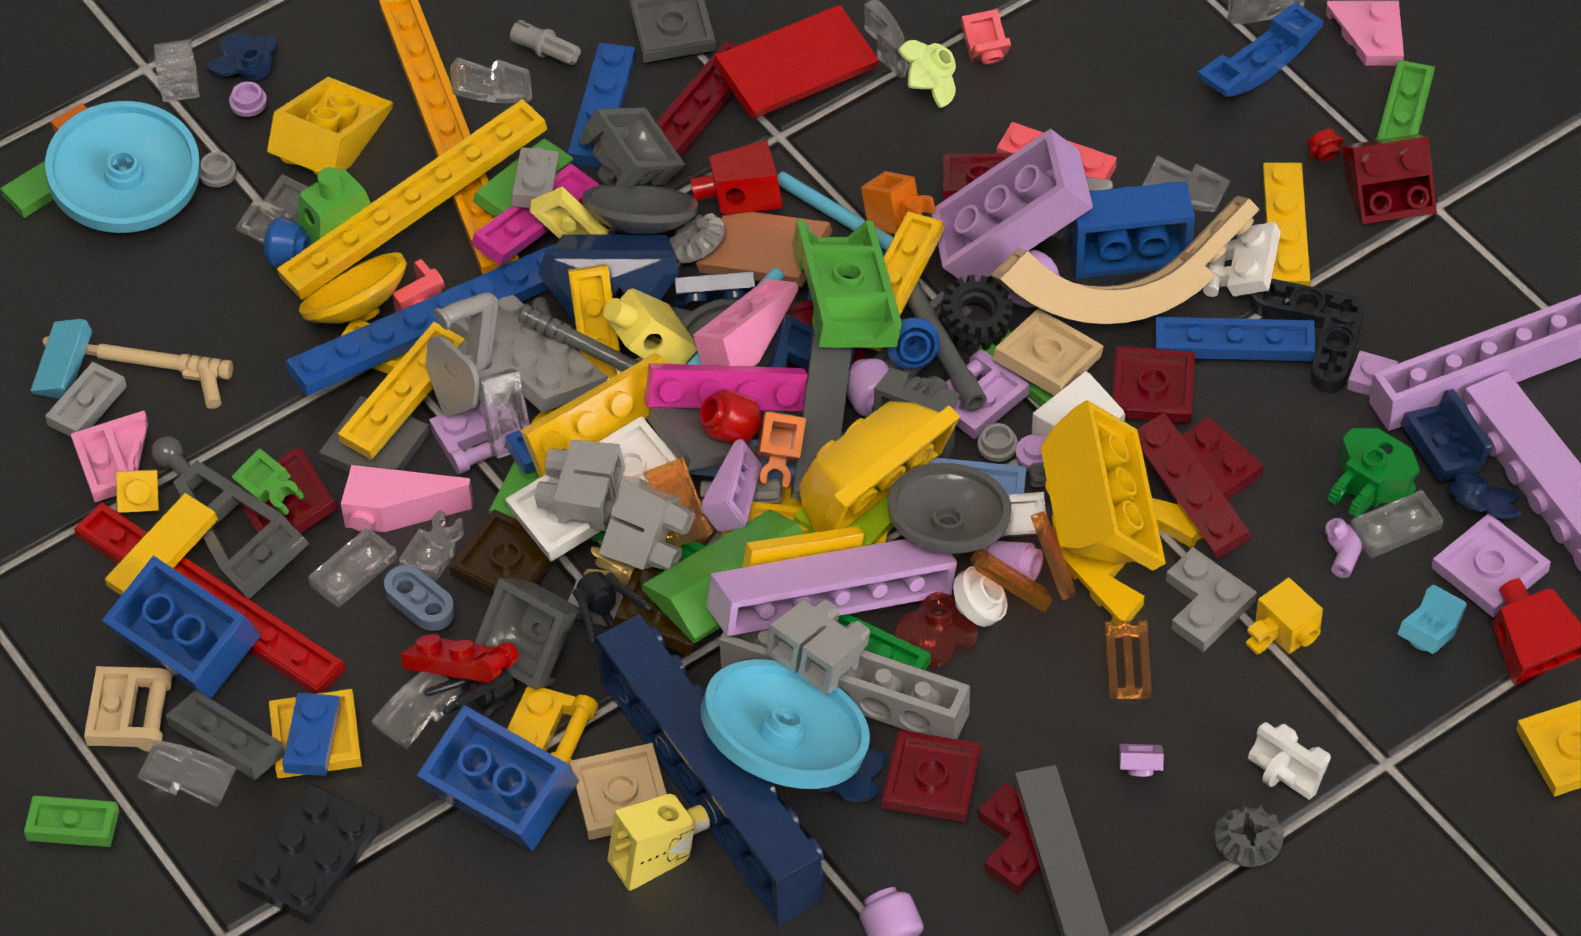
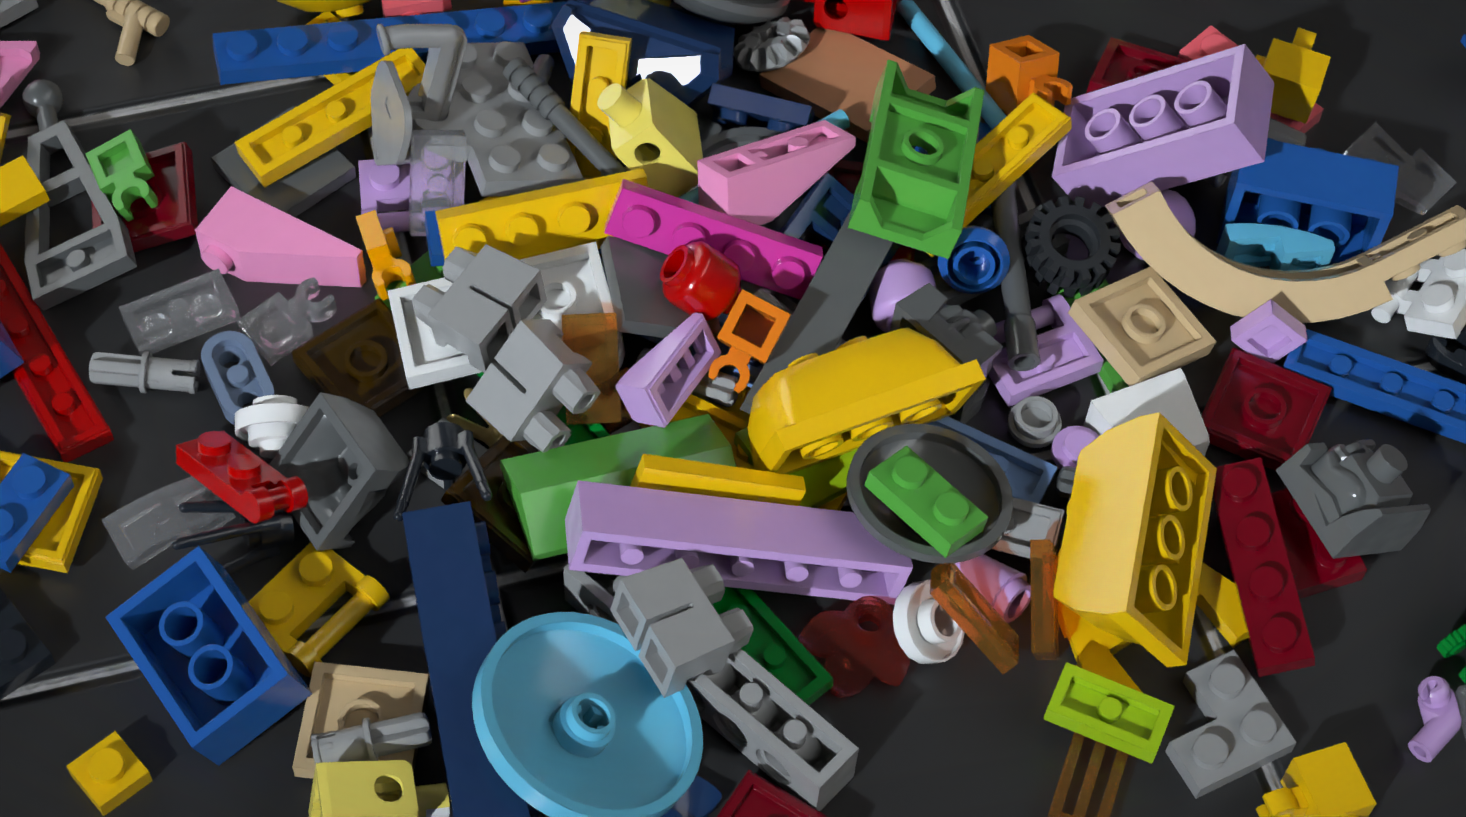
camera: 15 degrees right, 5 degrees up
(348, 615) = (144, 372): none -> light grey axle
(459, 881) = (109, 773): none -> yellow plate
(462, 616) = (268, 422): none -> white plate
(483, 477) = (383, 251): none -> light orange plate
(637, 791) = (372, 739): none -> light grey axle
(950, 512) = (926, 501): none -> bright green plate
(1091, 137) = (1296, 75): none -> yellow brick
(1119, 267) = (1275, 247): none -> medium azure slope
(1125, 612) = (1109, 712): none -> lime plate
(1137, 327) = (1269, 332): none -> lavender plate
(1237, 418) = (1354, 497): none -> dark grey brick

